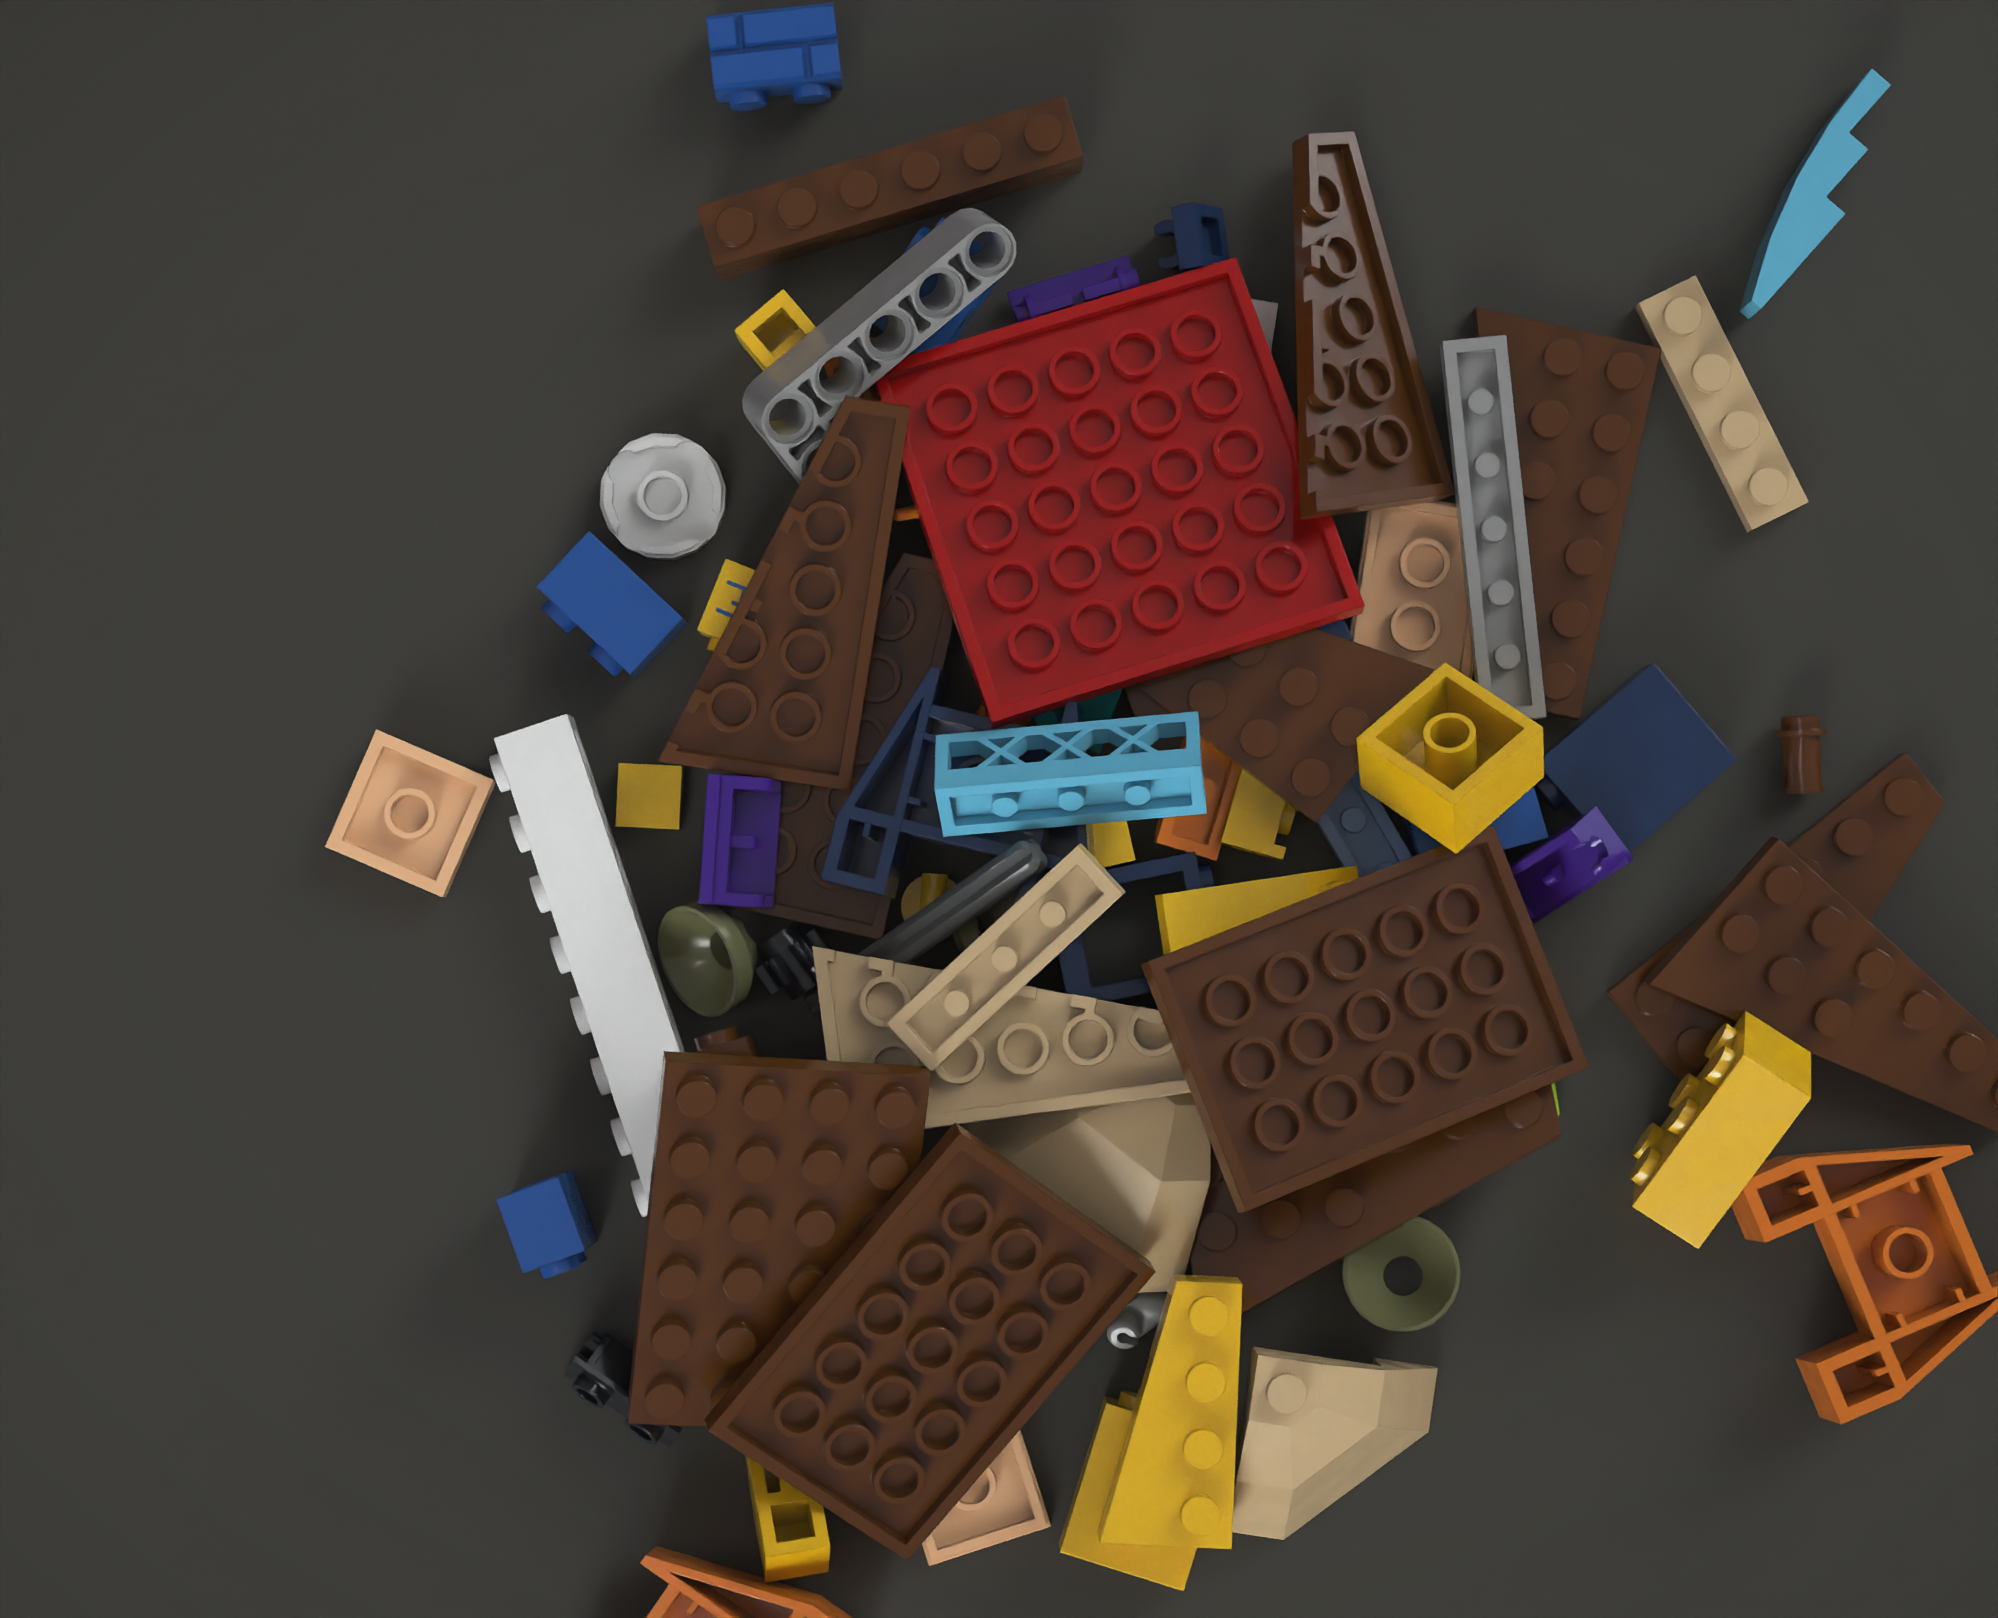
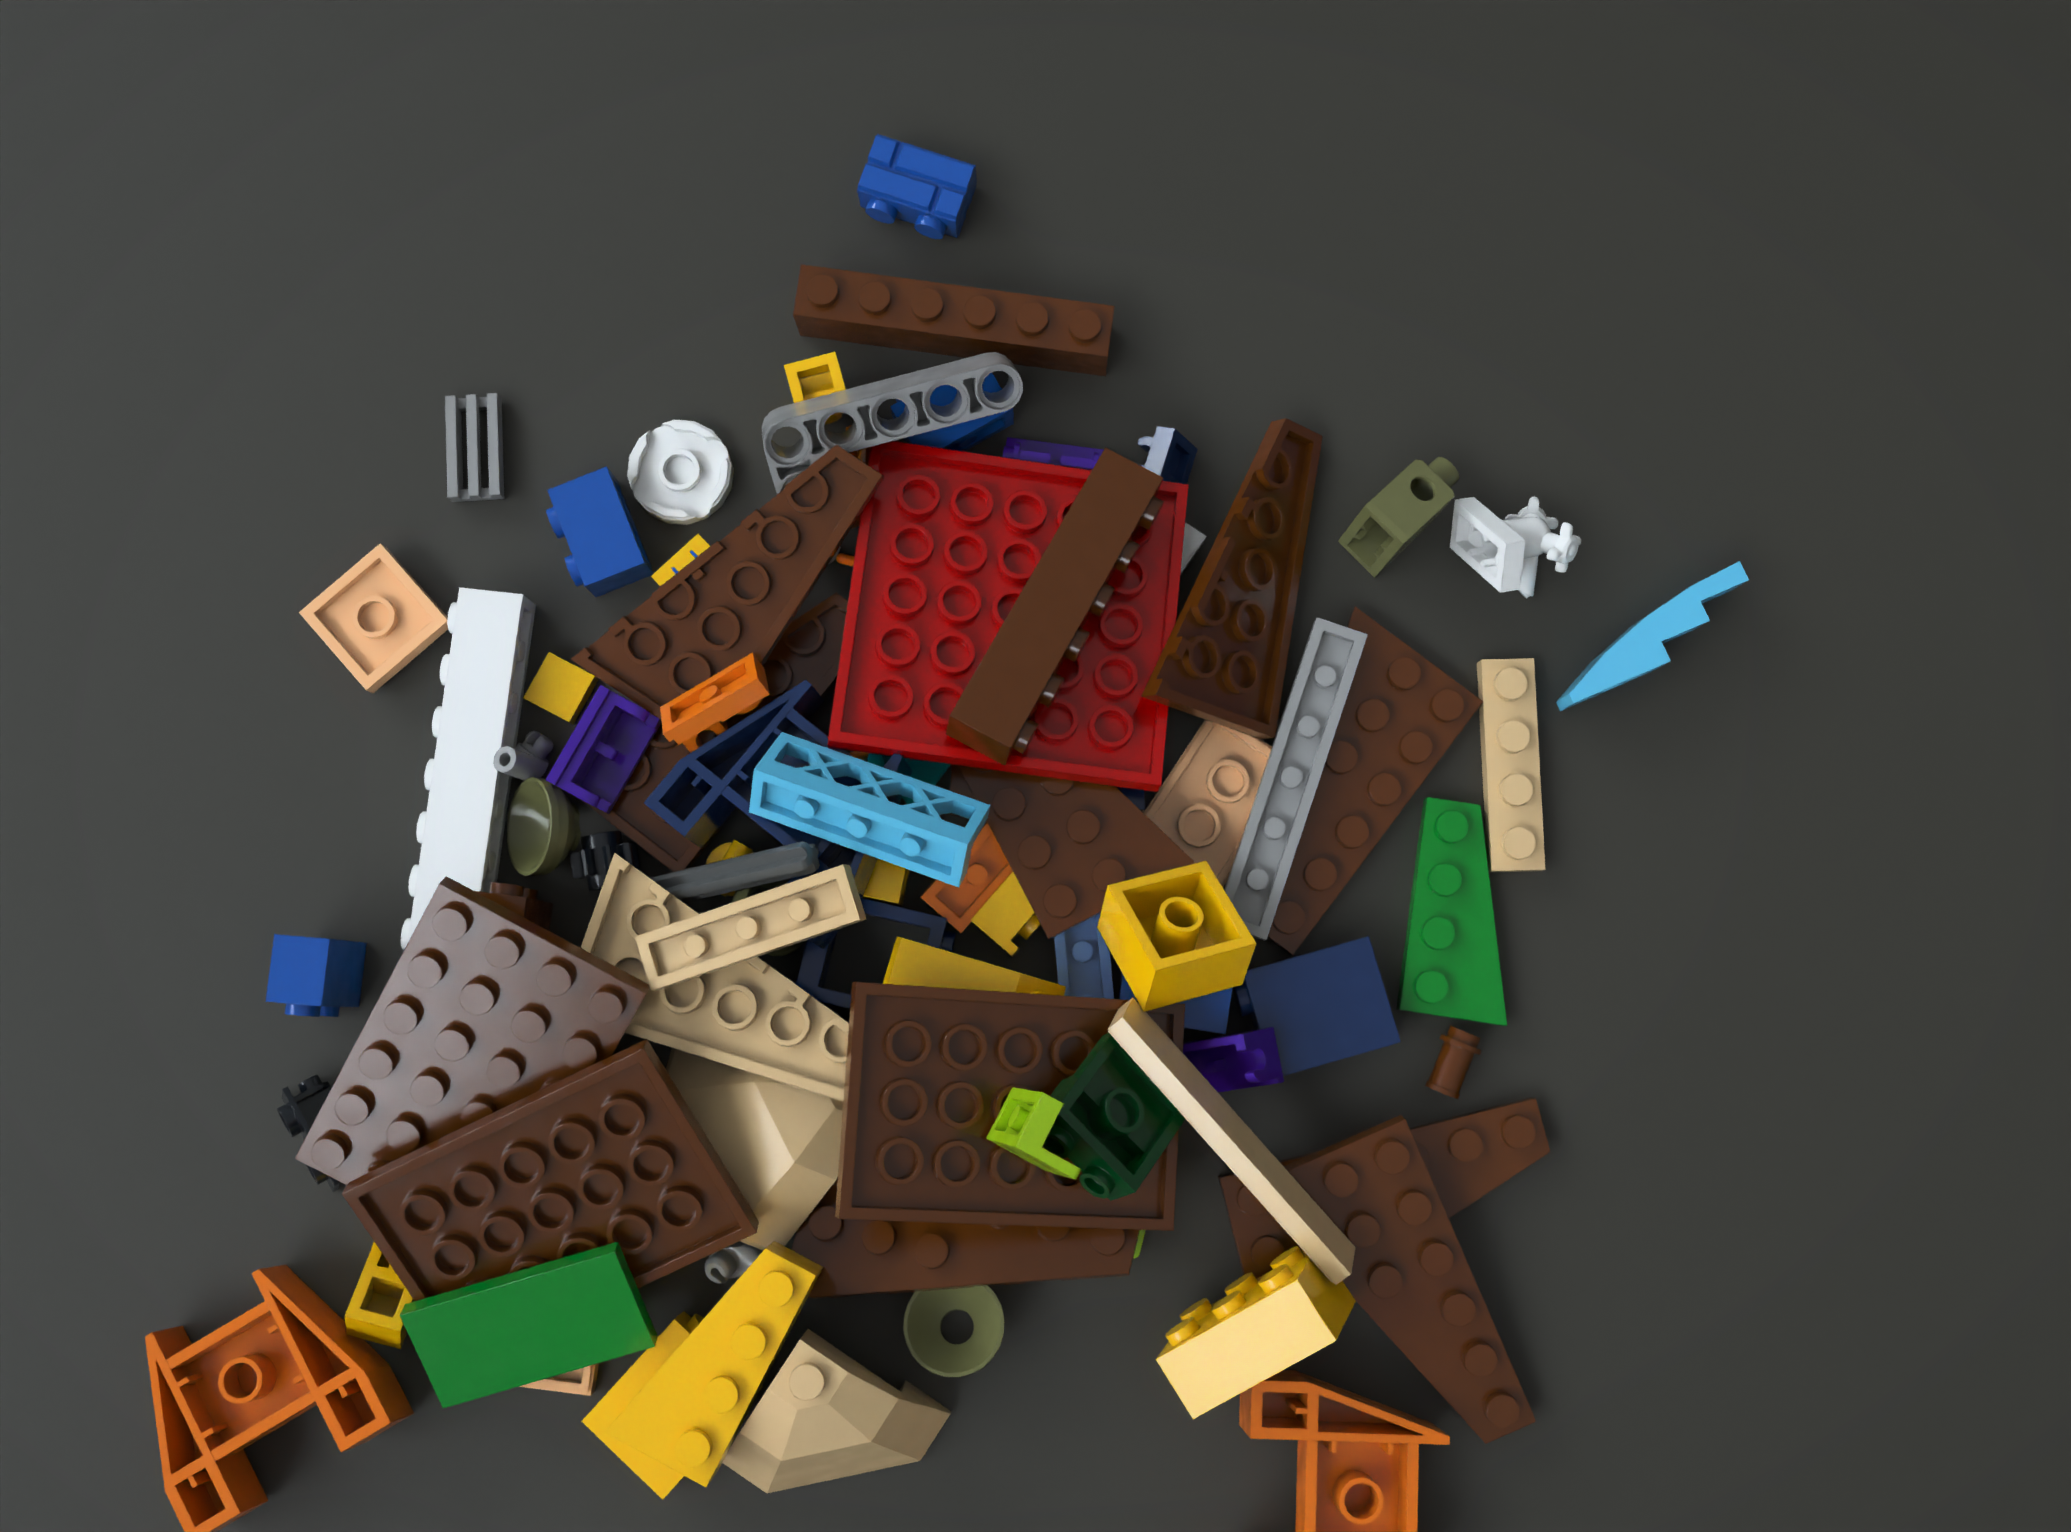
camera: 30 degrees right, 5 degrees down
(395, 527) = (454, 458): none -> light grey tile
(652, 890) = (526, 759): none -> light grey arm
(842, 734) = (713, 701): none -> orange plate
(961, 1478) = (529, 1325): none -> green tile
(1164, 464) = (1054, 607): none -> reddish brown brick
(1395, 1028) = (1025, 1126): none -> lime panel
(1475, 980) = (1111, 1121): none -> dark green plate
(1481, 182) = (1400, 513): none -> olive torso
(1609, 944) = (1233, 1141): none -> tan tile
(1617, 170) = (1510, 548): none -> white piece
(1735, 612) = (1451, 928): none -> green wing

